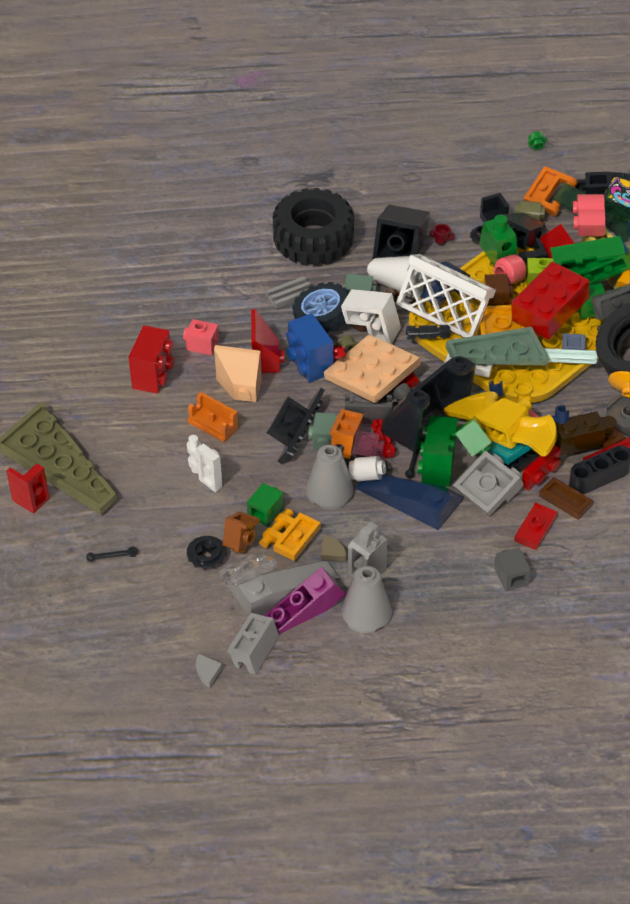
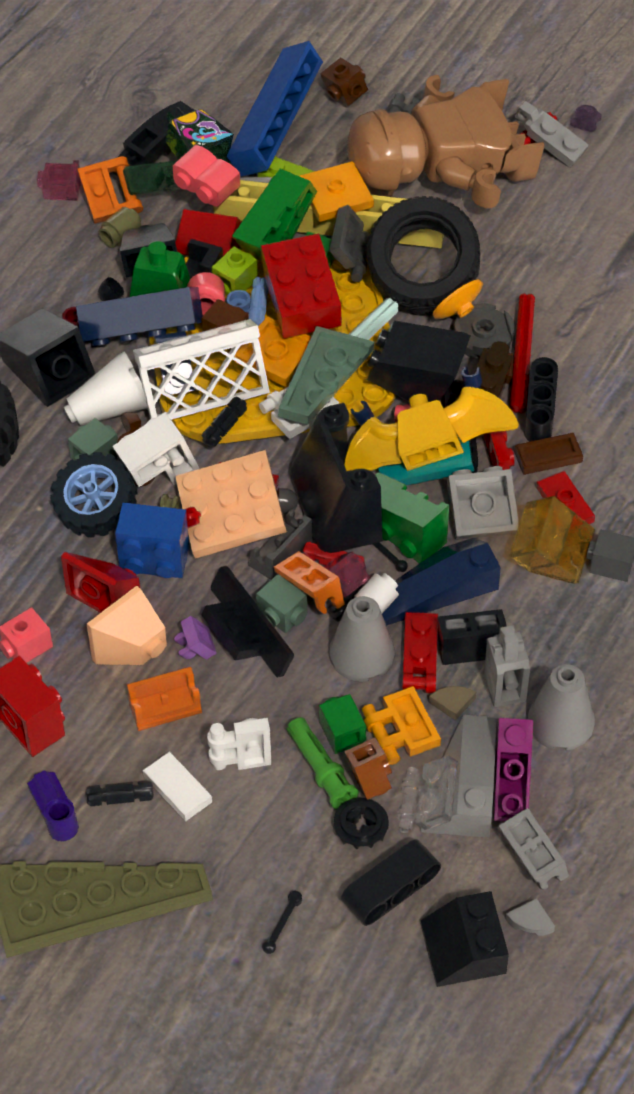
camera: 55 degrees left, 5 degrees up
(29, 489) = (125, 956): red panel -> none
(101, 412) = (54, 805): none -> dark purple piece
(136, 435) = (119, 793): none -> black axle
(162, 458) = (177, 786): none -> white tile
(165, 645) = (465, 940): none -> black slope
(175, 586) = (391, 882): none -> black beam
(244, 492) = (328, 773): none -> bright green pin
(266, 408) = (197, 638): none -> medium lavender tile
(287, 291) = (32, 492): light grey tile -> none
(352, 515) = (420, 651): none -> red plate
(389, 526) = (465, 635): none -> black hinge
(463, 251) = (140, 314): none -> dark blue brick
(474, 437) = (423, 472): brick -> none
(491, 531) = (552, 540): none -> clear yellow slope
(493, 206) = (91, 254): black panel -> none
(518, 286) = (240, 299): none -> medium blue plate
(532, 166) = (60, 181): none -> clear pink brick
(537, 140) = (16, 153): green plate -> none
(558, 384) = (417, 359): none -> black slope
(573, 341) = (355, 310): sand blue tile -> none

